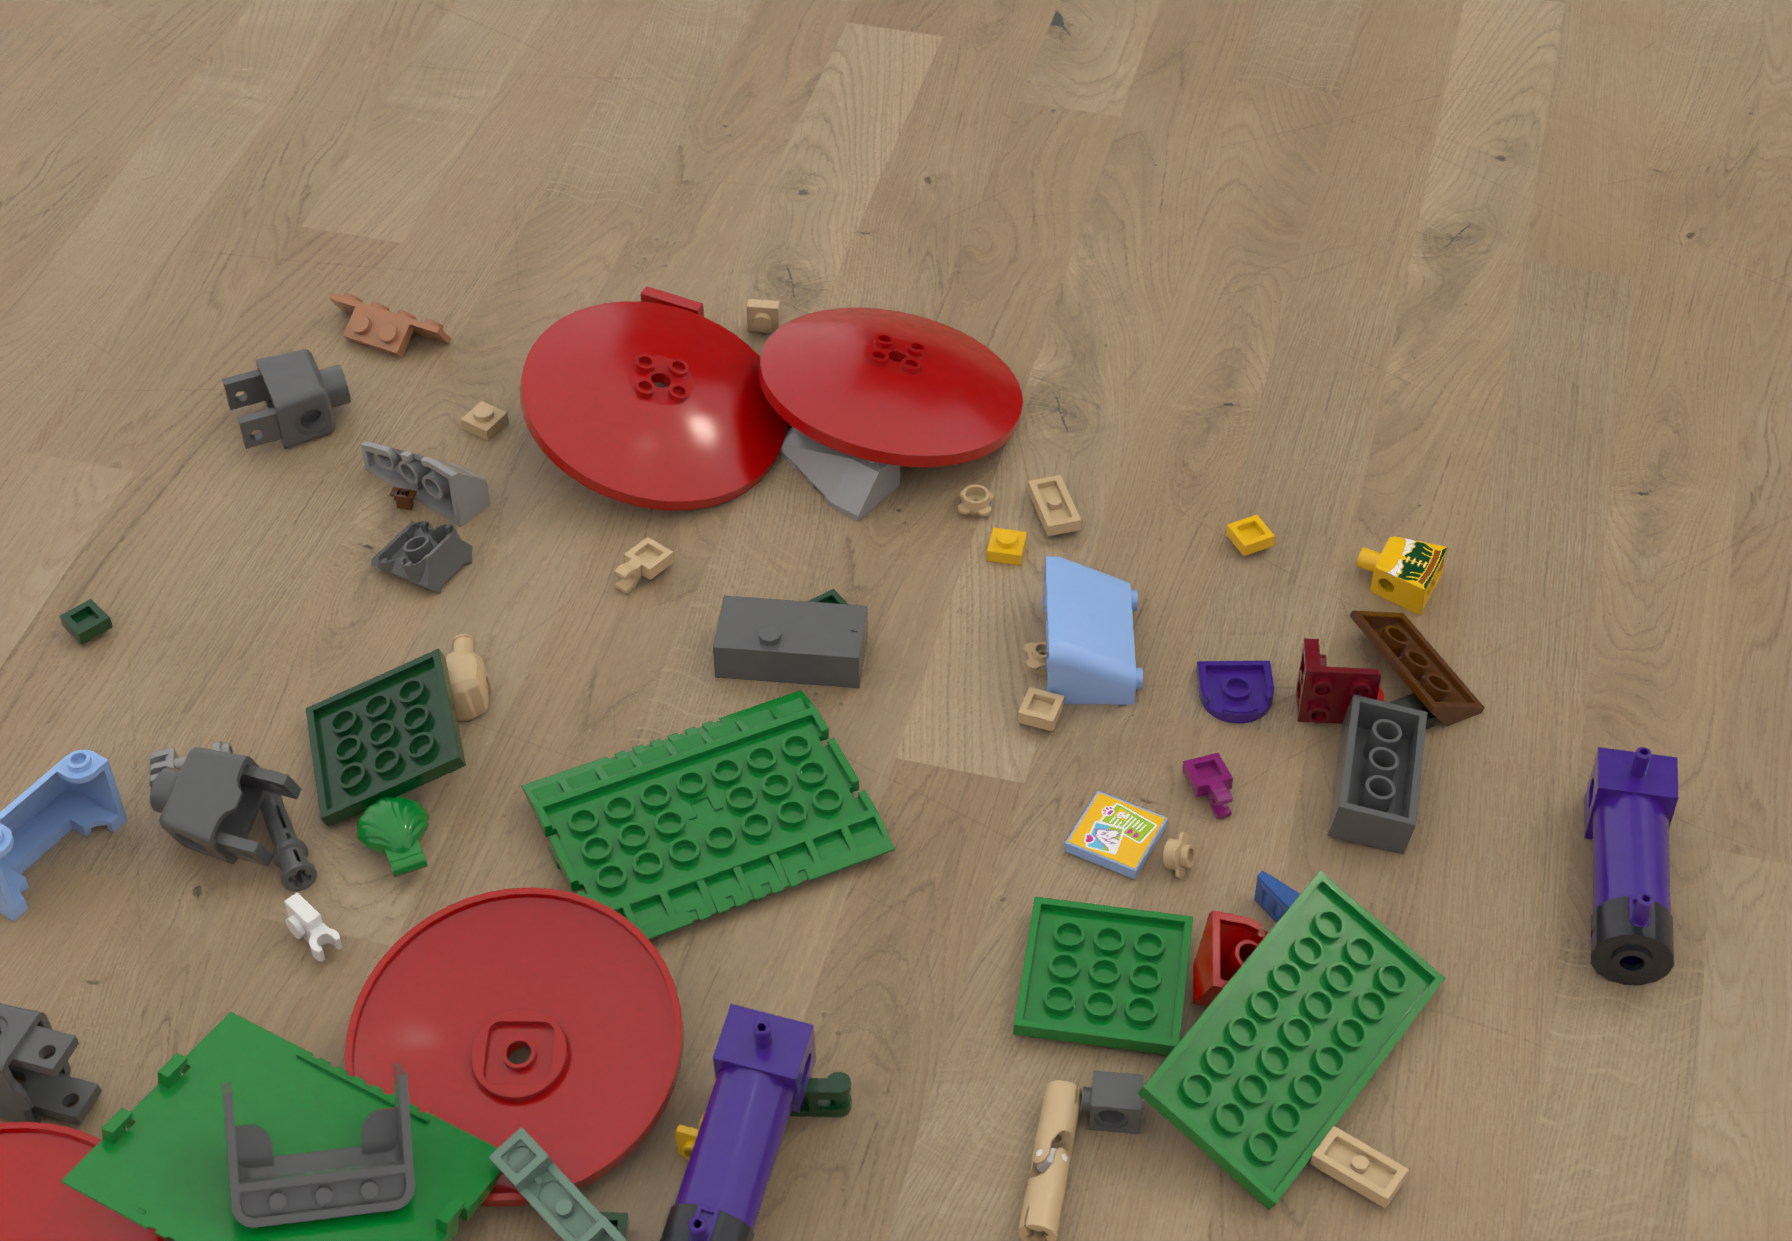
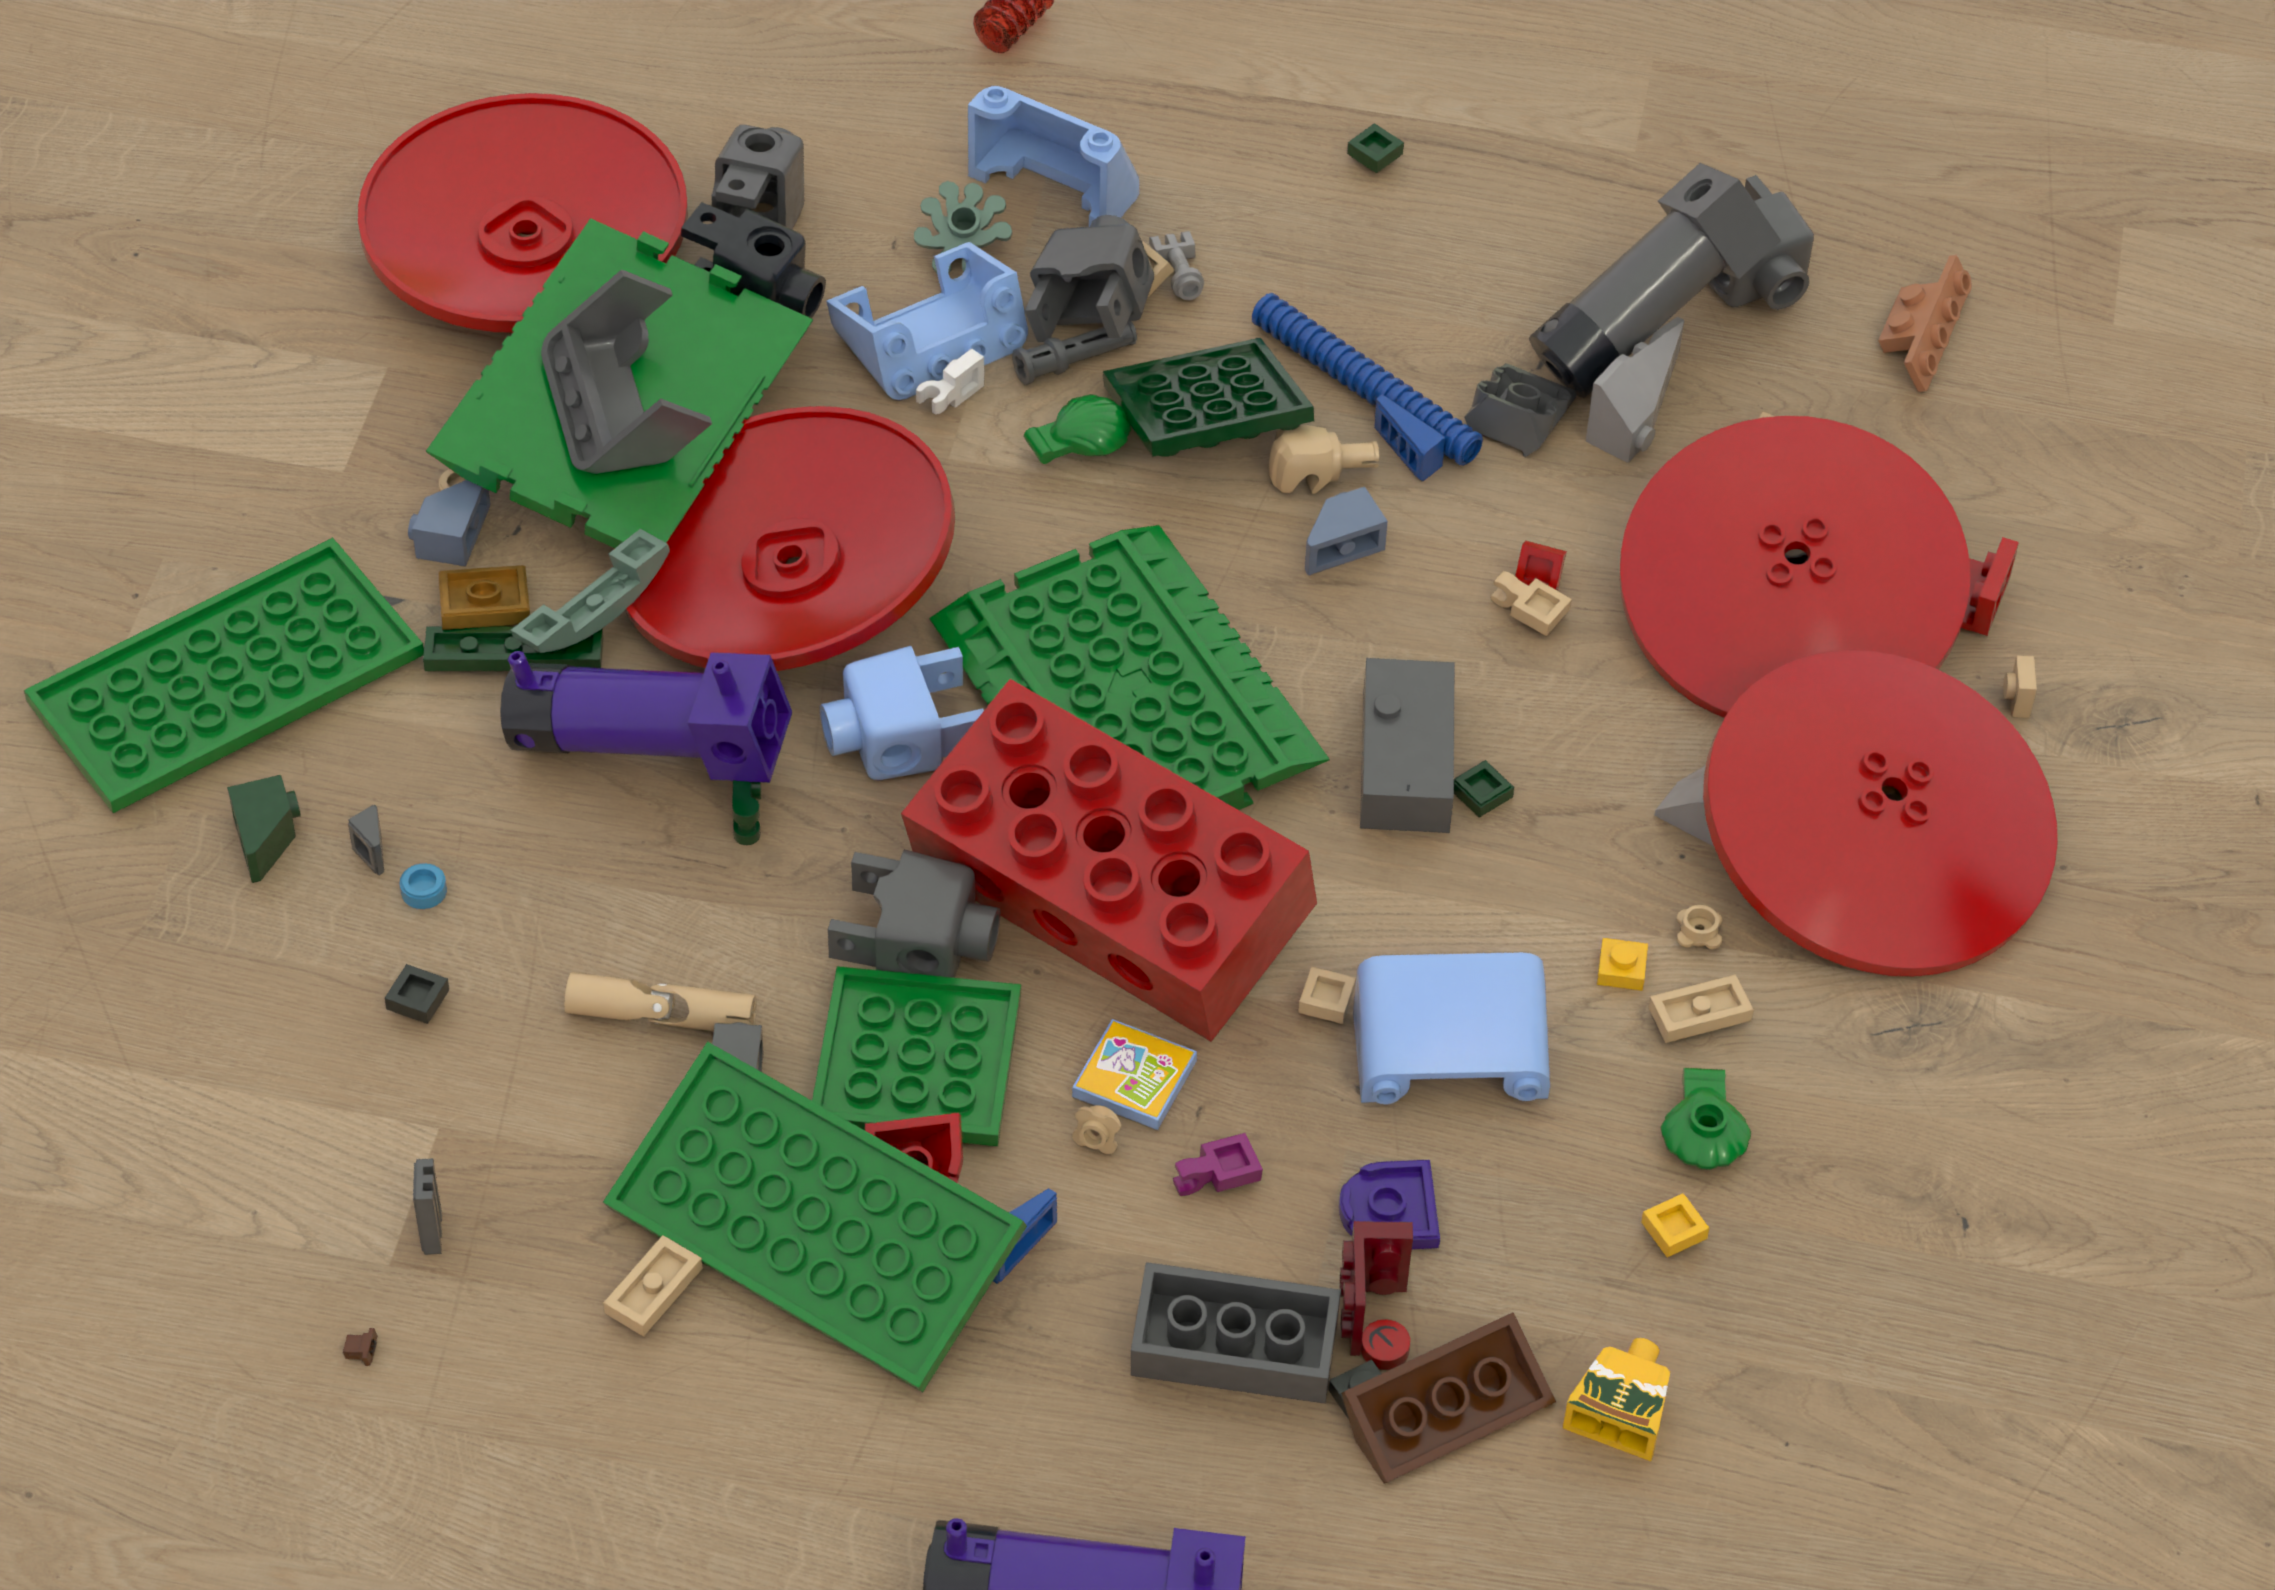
camera: 85 degrees right, 5 degrees up
(104, 913) = (964, 220): none -> sand green animal
(130, 1054) = (761, 252): none -> black piece
(225, 936) = (917, 343): none -> light blue windscreen
(322, 383) = (1706, 231): none -> dark grey piece
(367, 645) = (1361, 373): none -> blue piece
(457, 616) = (1410, 438): none -> blue slope
(546, 667) = (1345, 531): none -> sand blue slope
(606, 553) = (1540, 563): none -> red tile
(732, 965) = (892, 714): none -> light blue piece
(927, 812) = (1114, 858): none -> red brick
(972, 955) = (924, 920): none -> dark grey piece
(1160, 512) = (1704, 1126): none -> green animal

